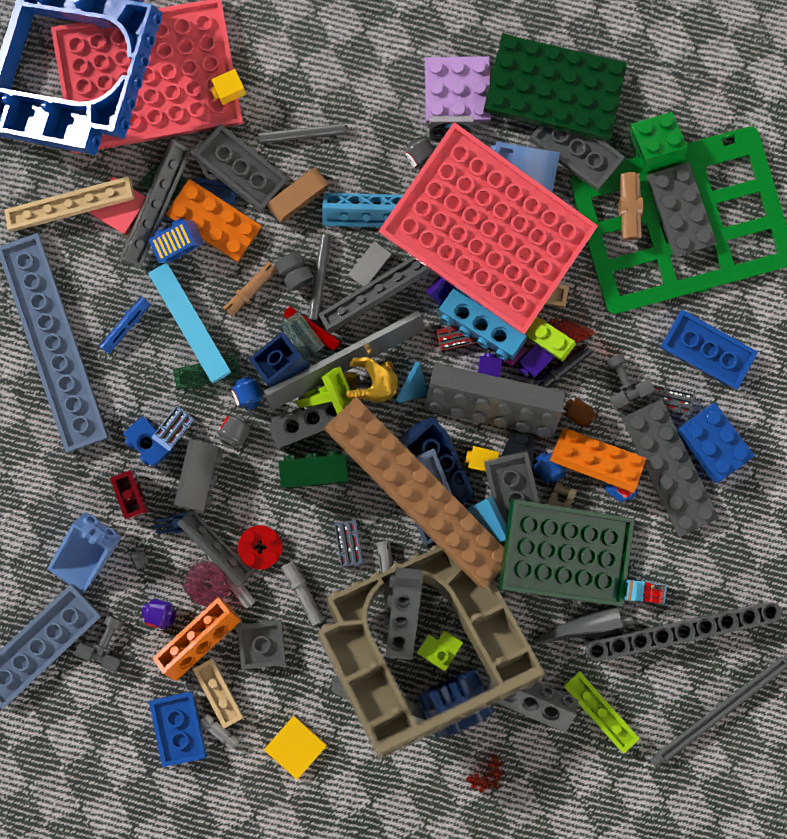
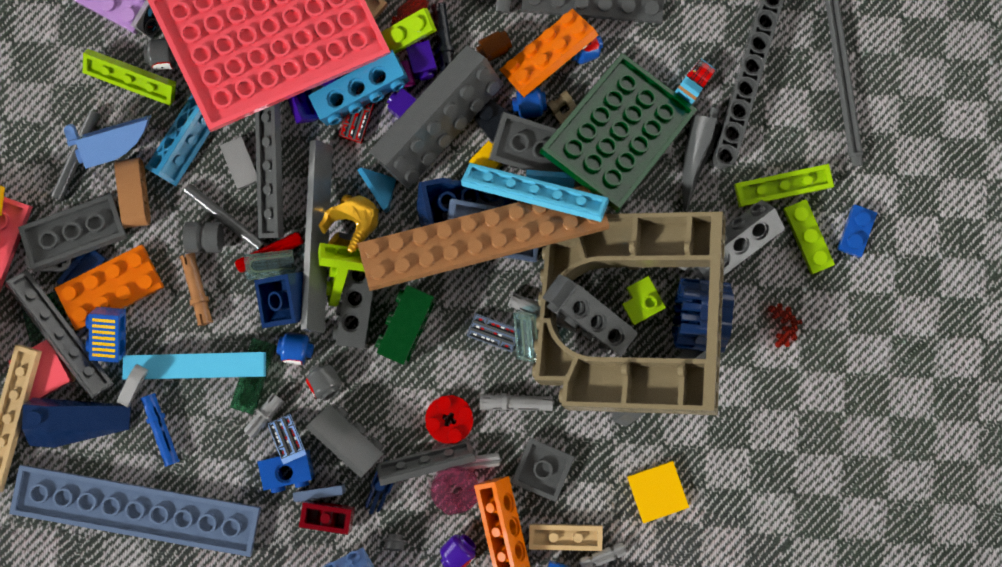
camera: 60 degrees left, 0 degrees up
(91, 249) = (68, 421): none -> dark blue wedge
(145, 477) = (319, 492): none -> sand blue tile
(147, 284) = (132, 385): none -> light grey beam
(181, 399) = (264, 415): none -> light grey axle
(326, 155) = (106, 143): none -> medium blue piece
(360, 570) = (525, 335): none -> clear light blue tile
(387, 138) = (129, 77): none -> lime plate
(477, 514) = (535, 192): none -> medium azure tile
(571, 756) = (808, 237): none -> lime plate
(598, 793) = (857, 231): none -> blue plate

